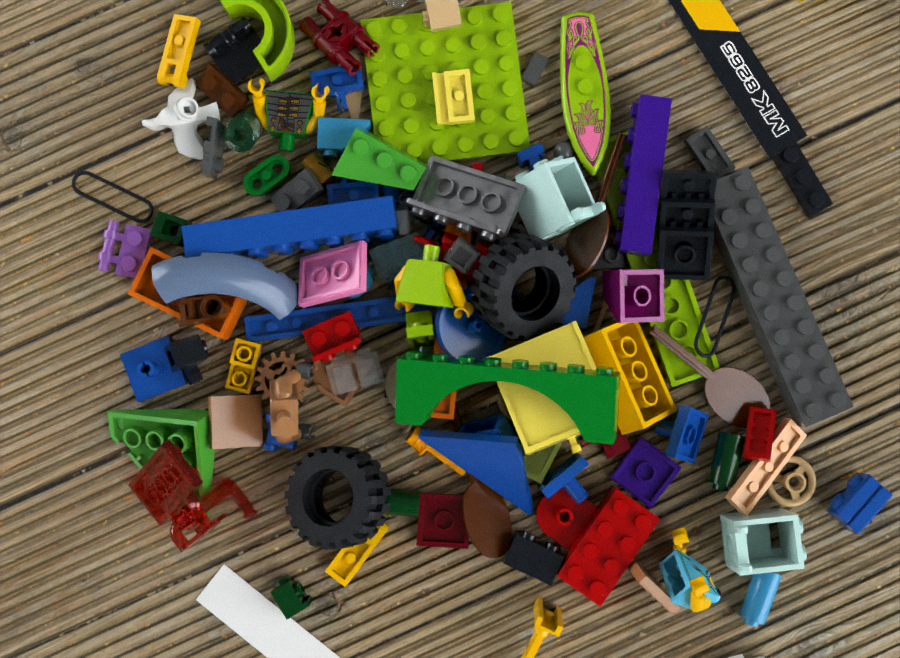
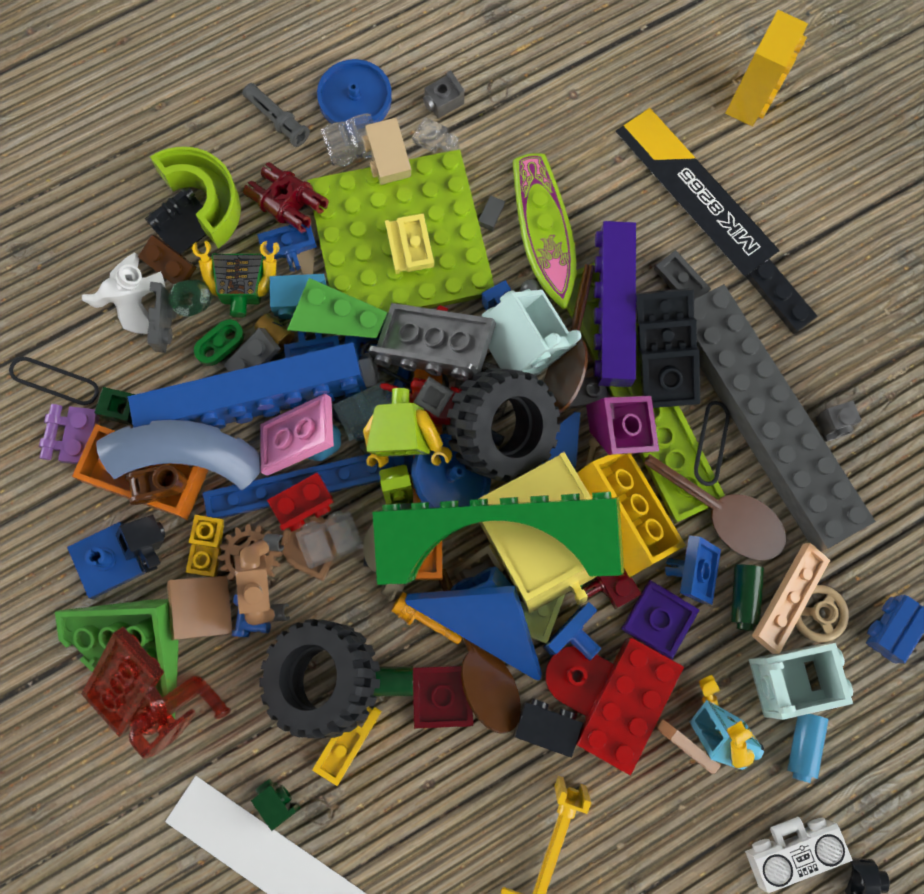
camera: 10 degrees left, 10 degrees down
(178, 51) = (118, 226): yellow plate -> none
(759, 434) = (779, 562): red plate -> none
(836, 307) = (838, 420): none -> flat silver brick

